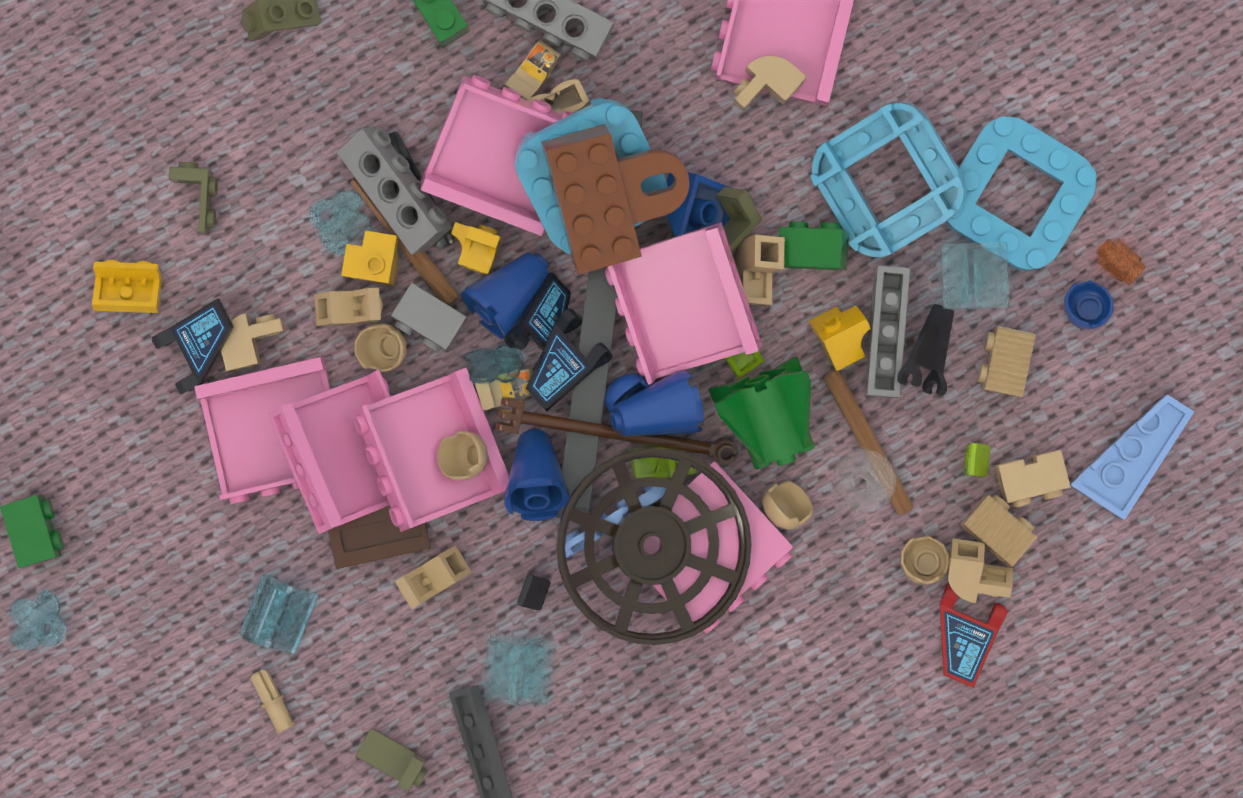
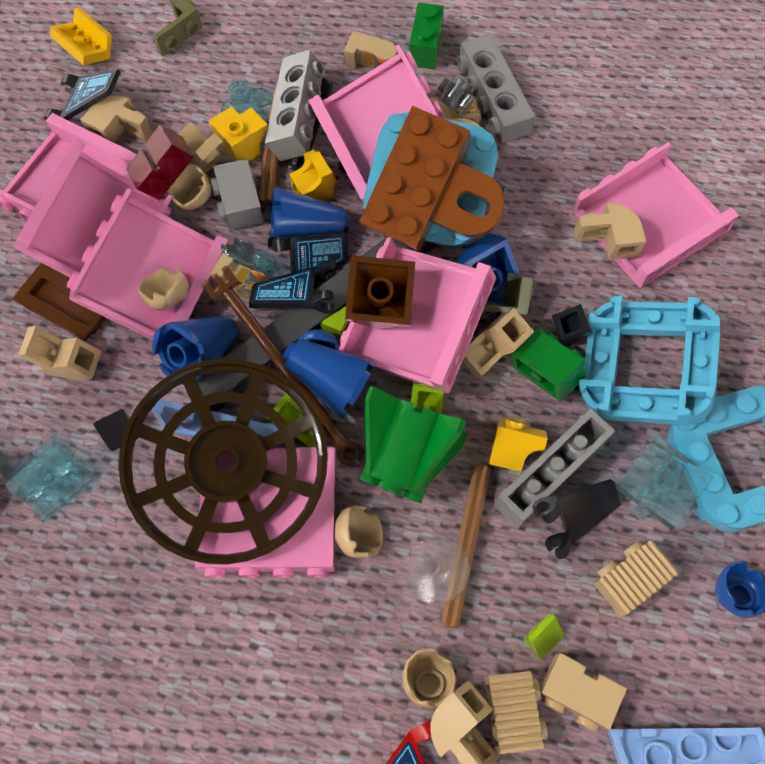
camera: 40 degrees right, 20 degrees down
(350, 344) = (170, 158): none -> dark red piece
(402, 68) = (367, 51): none -> tan leg
(532, 65) = (455, 93): none -> dark grey gear
(622, 356) = (336, 323): none -> lime slope
(648, 317) = (380, 292): none -> reddish brown slope
(803, 197) = (571, 325): none -> black slope

